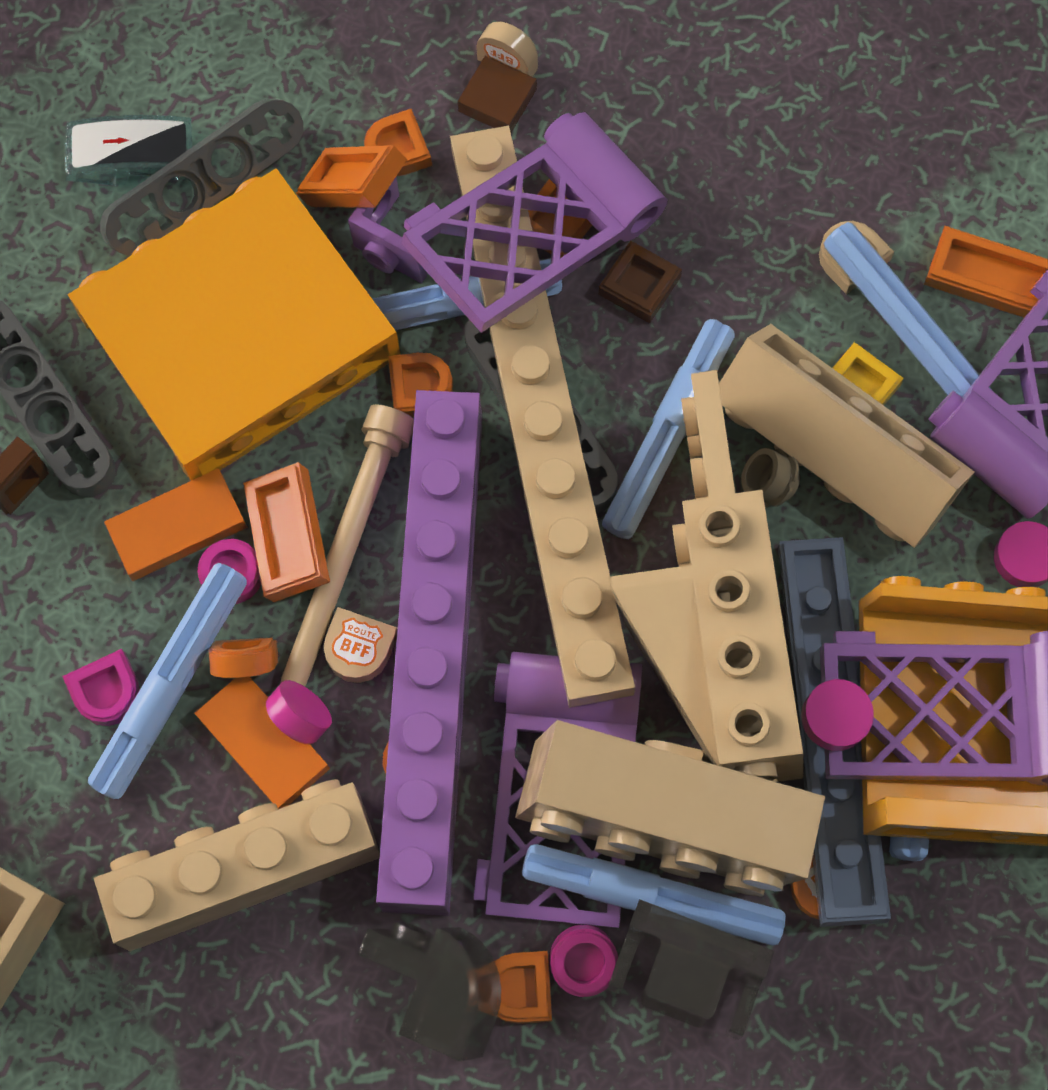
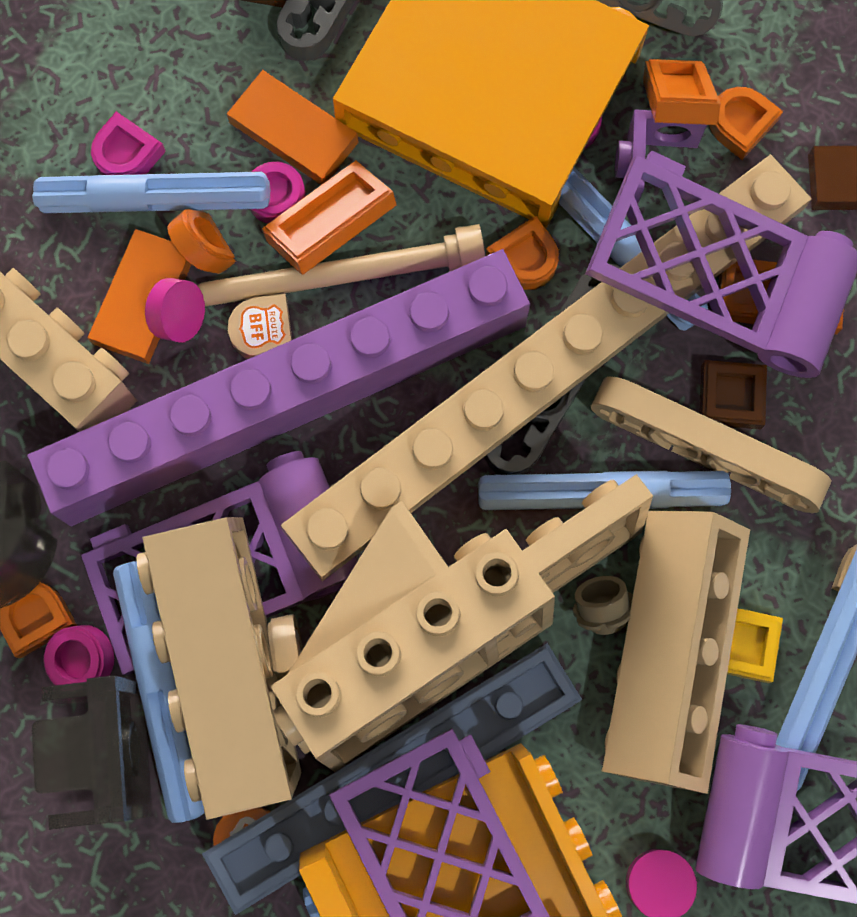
camera: 60 degrees right, 5 degrees up
(675, 320) = (711, 444): none -> tan beam
(837, 715) = (384, 774): dark pink tile -> none

